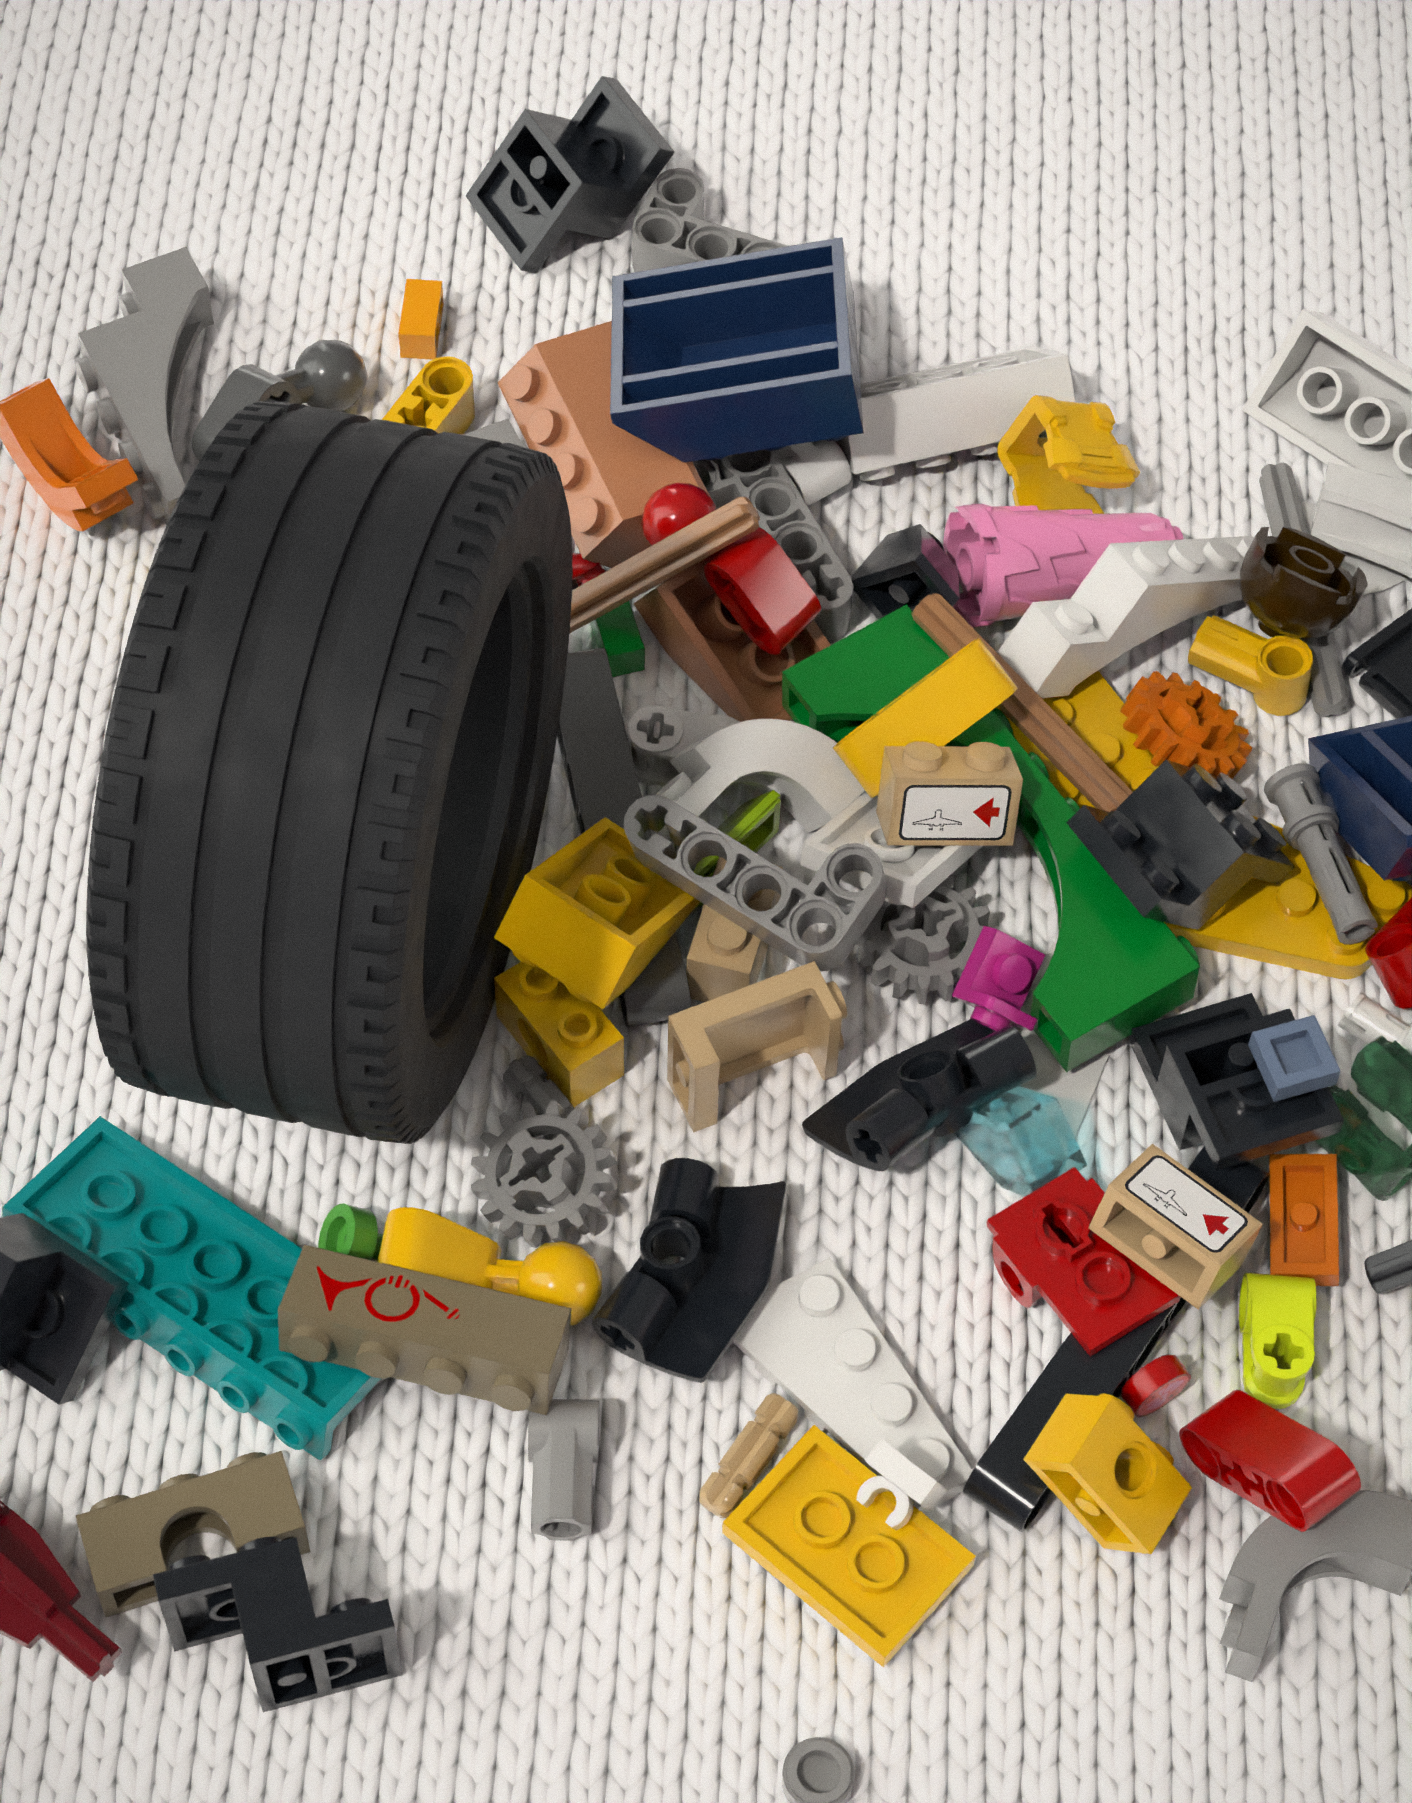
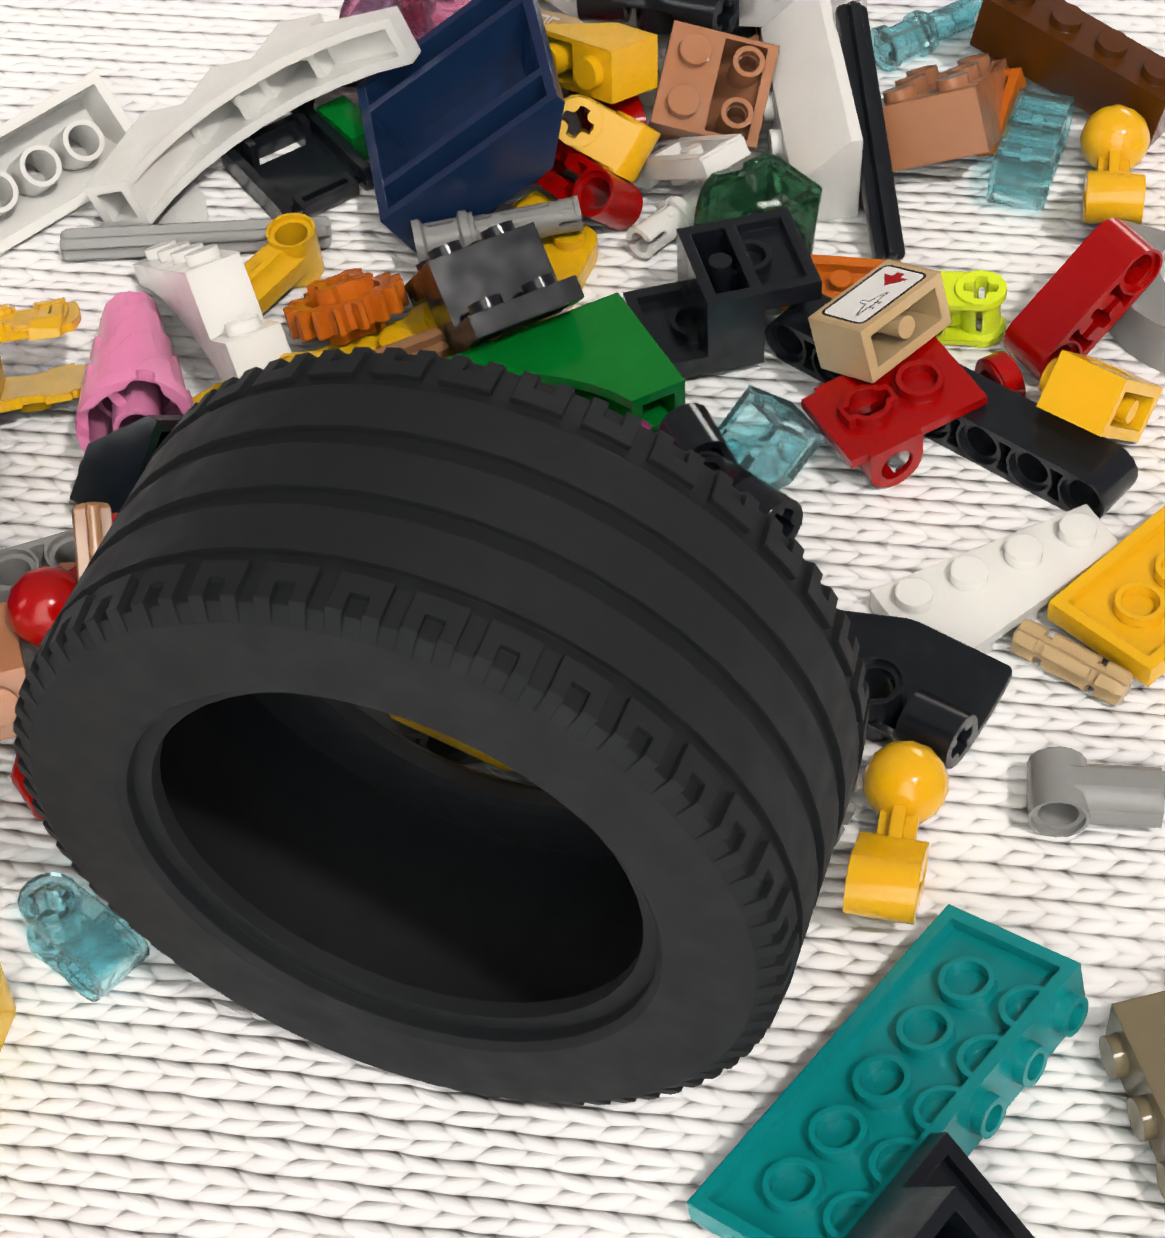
camera: 80 degrees left, 10 degrees down
(351, 1232) = (847, 964): bright green tile -> none
(424, 1330) = (981, 871): dark tan brick -> none
(902, 1479) = (1114, 528): white tile -> none
(1294, 1058) = (738, 215): sand blue plate -> none
(1298, 584) = (227, 205): dark brown cylinder -> none

